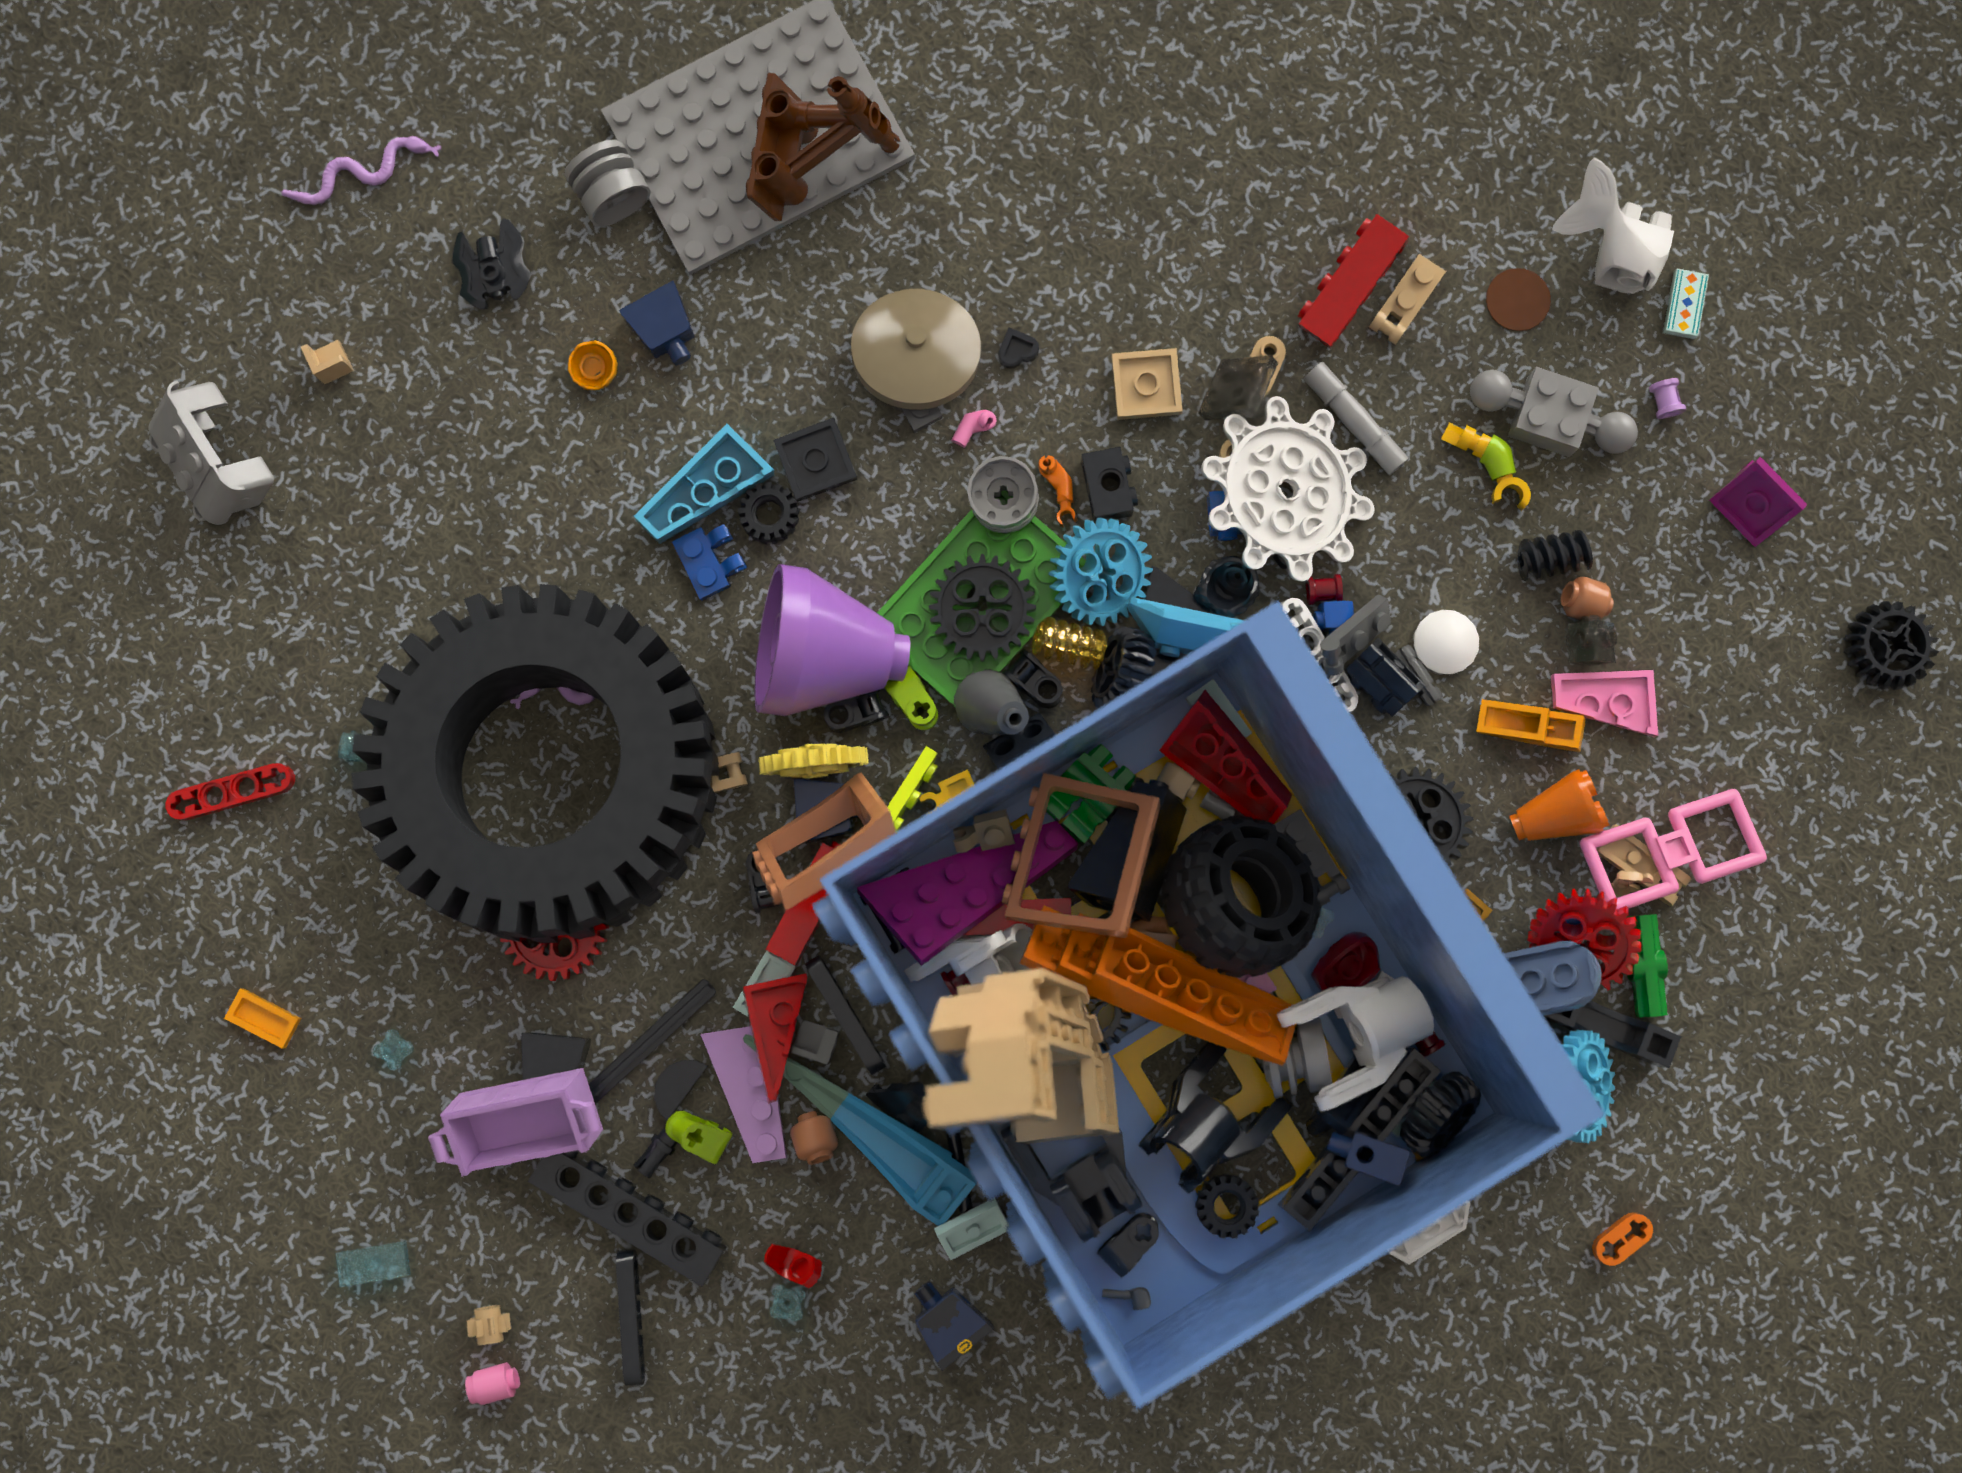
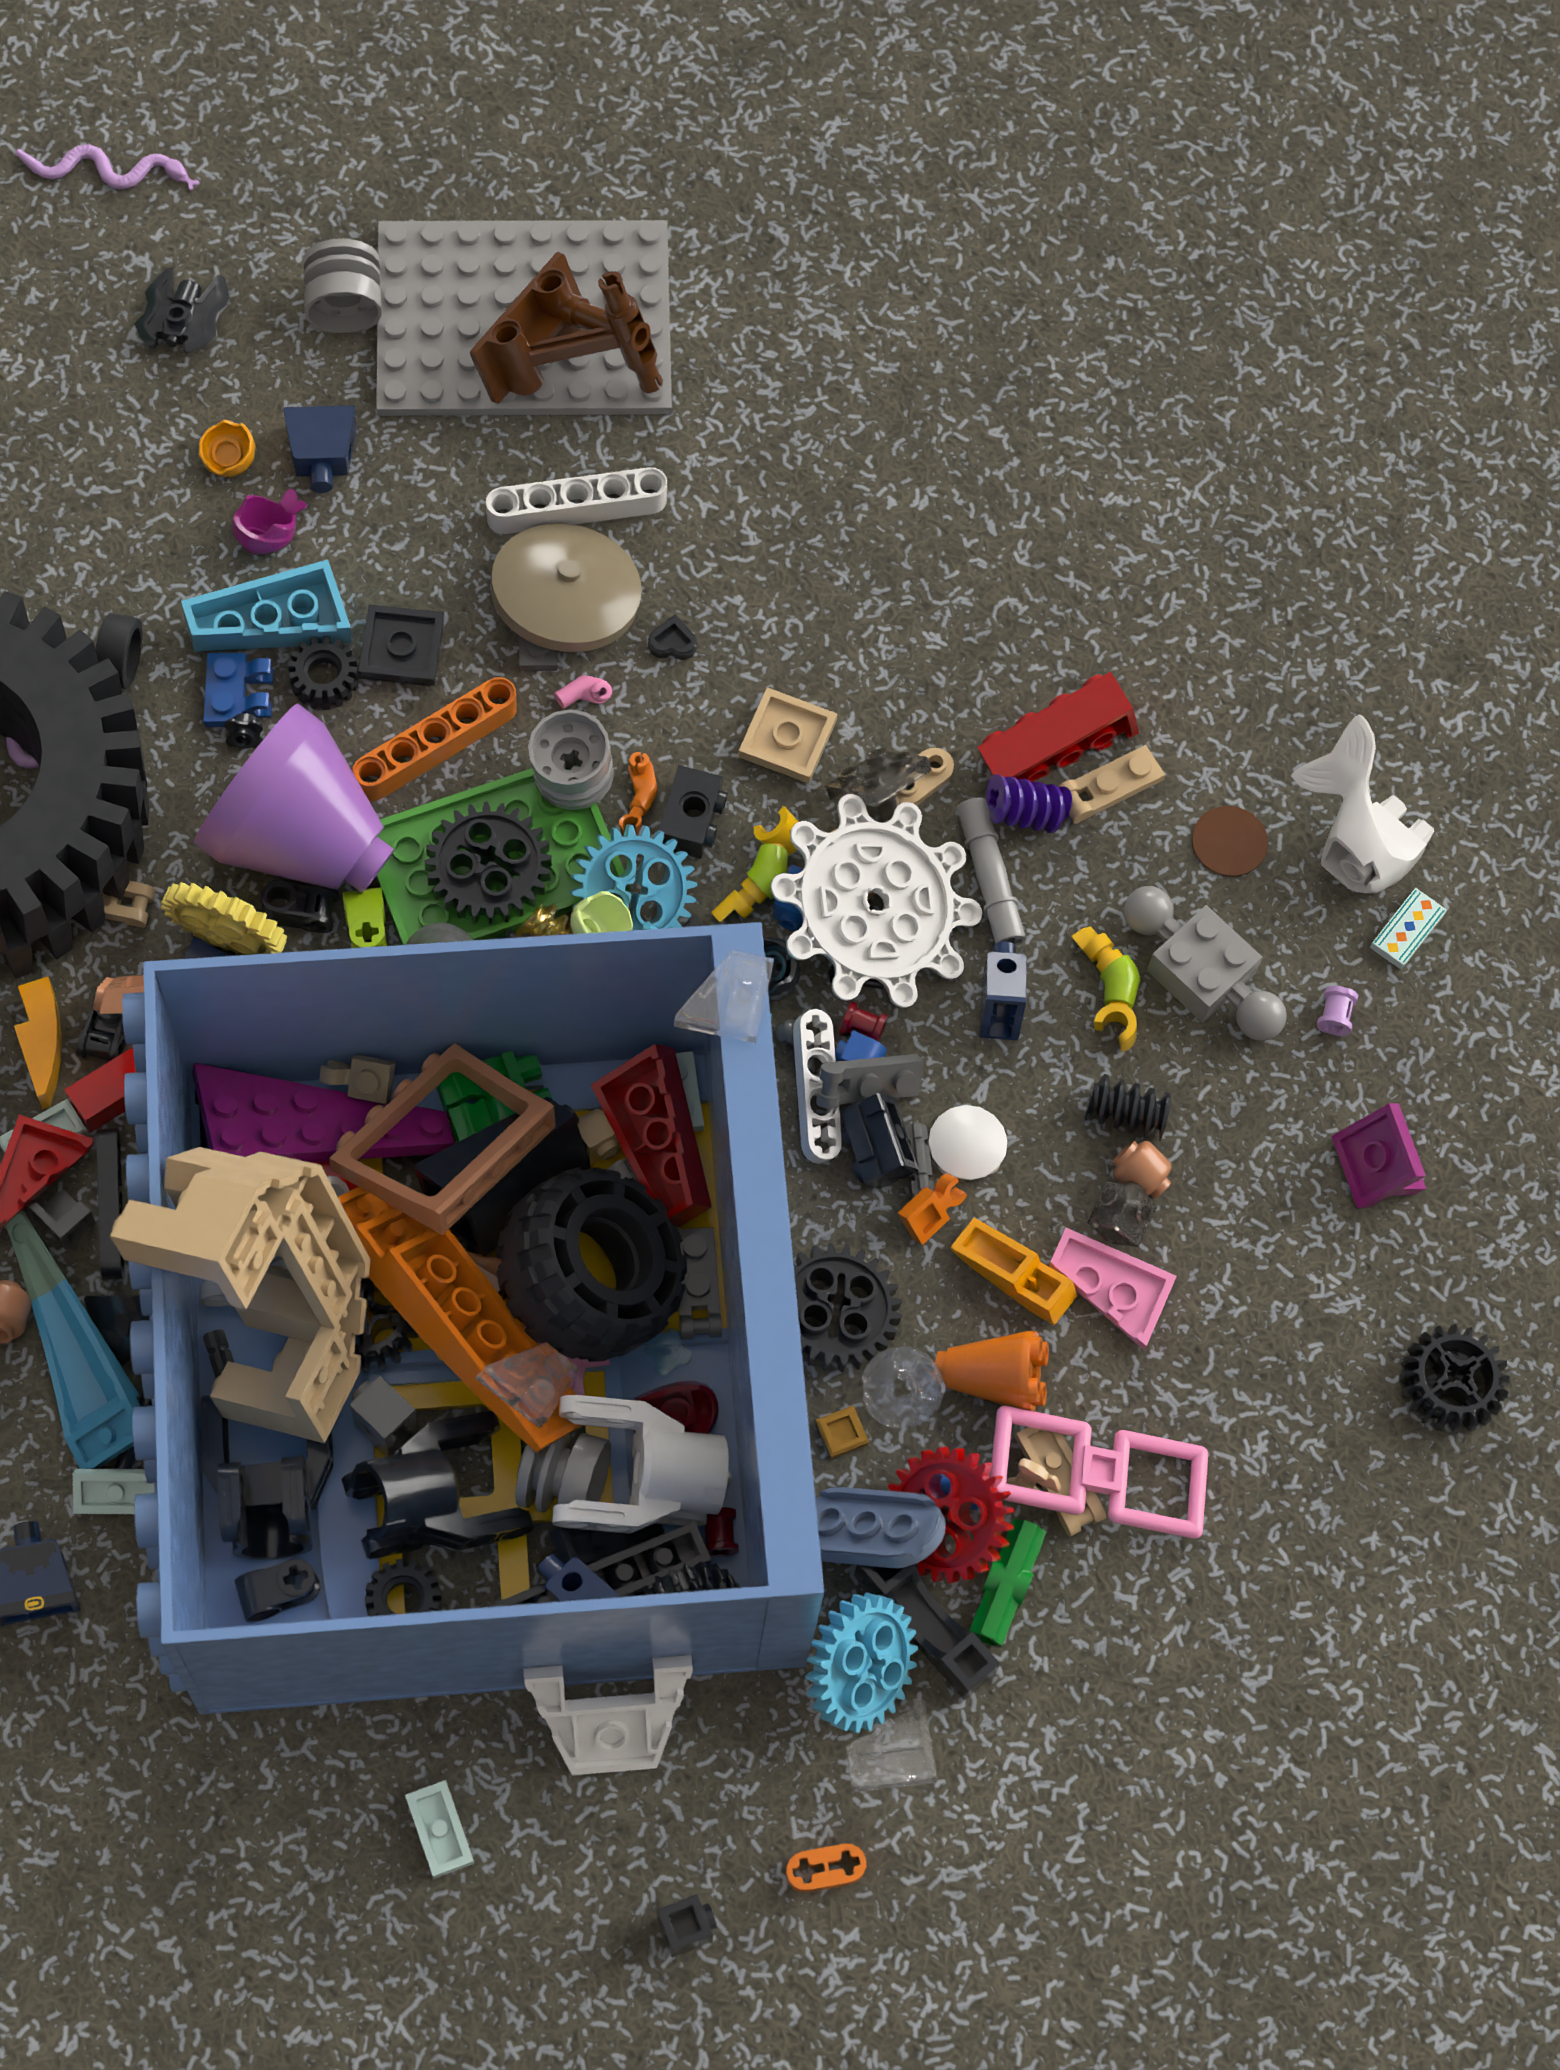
camera: 15 degrees right, 15 degrees down
(605, 576) = (122, 643): none -> black tyre
(658, 414) = (264, 525): none -> magenta hat
(722, 914) = (41, 1037): none -> light orange slope
(736, 591) = (244, 731): none -> black plate
(884, 509) = (444, 724): none -> orange beam
(891, 257) = (590, 489): none -> white beam
(1097, 616) = (600, 914): none -> yellowish green hair
(1143, 1083) = (383, 1416): none -> dark grey brick
(1192, 503) = (769, 863): none -> yellow piece
(1250, 1013) = (531, 1381): none -> clear wing
(1290, 677) = (730, 998): none -> clear wing
(1338, 1353) = (439, 1829): none -> light aqua plate
(1360, 350) = (1027, 803): none -> dark purple piece
(1417, 511) = (1003, 984): none -> dark blue torso
(1447, 710) = (927, 1210): none -> orange plate
(1507, 875) = (879, 1387): none -> clear plate
(1551, 1335) = (686, 1924): none -> black brick
(1629, 1132) = (894, 1754): none -> clear wing

